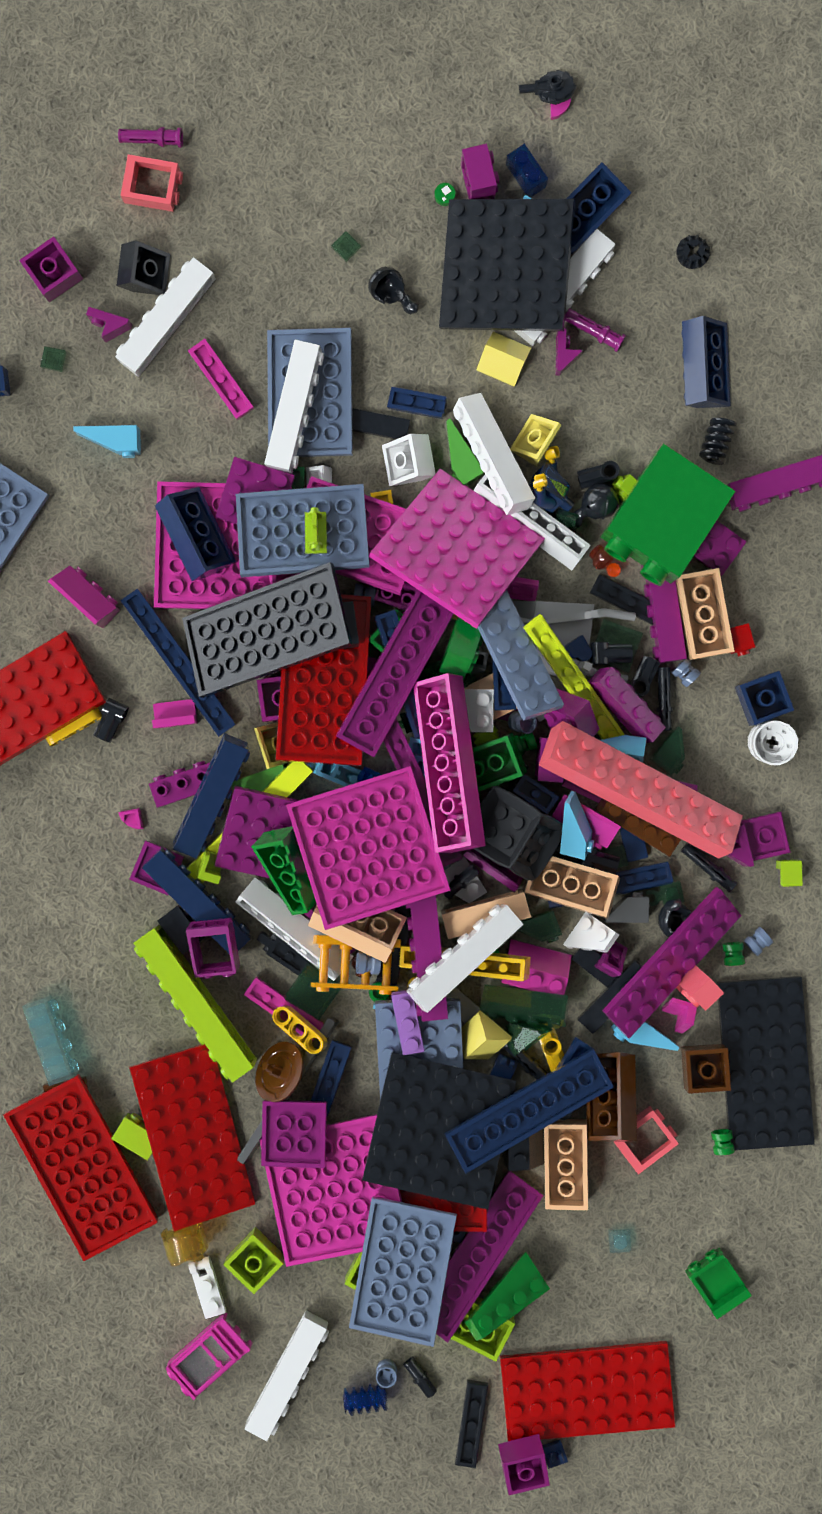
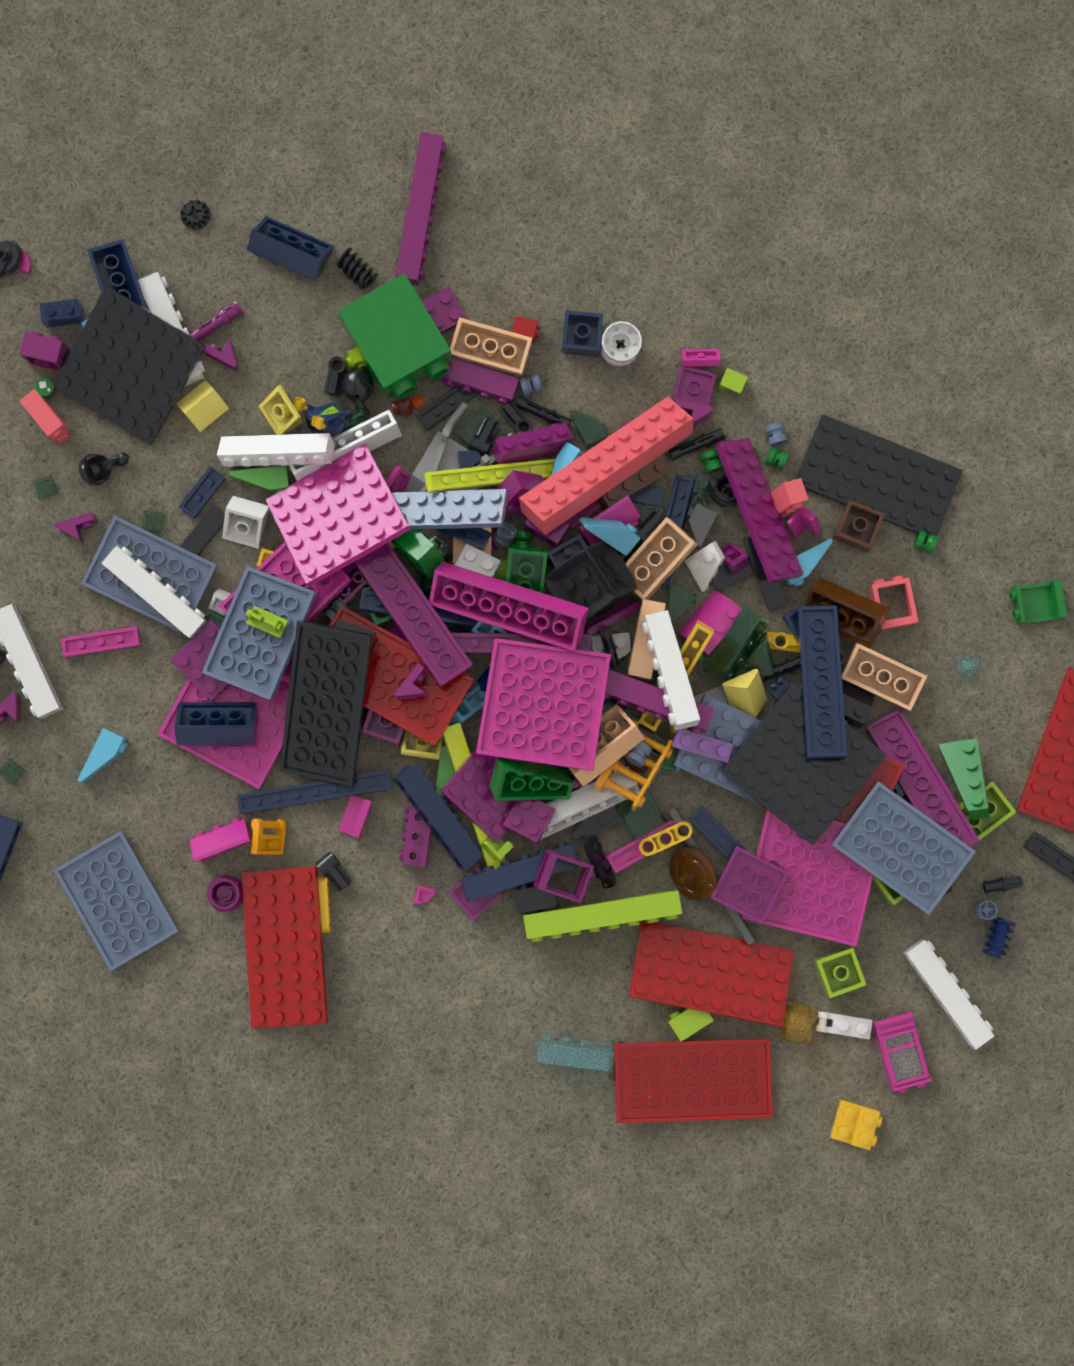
camera: 70 degrees left, 5 degrees down
(34, 628) = (228, 896): none -> magenta hat
(105, 644) = (268, 843): none -> light orange plate
(117, 1345) = (856, 1125): none -> yellow plate
(247, 971) = (601, 864): none -> black hinge
(252, 887) = (529, 819): none -> magenta plate
(318, 705) = (408, 688): none -> magenta slope
(320, 293) = (72, 525): none -> magenta slope
(364, 369) = (153, 521): none -> clear green tile
(413, 209) = (45, 417): none -> coral window
(693, 891) = (711, 461): none -> green wheel
(798, 828) = (701, 357): none -> dark pink plate

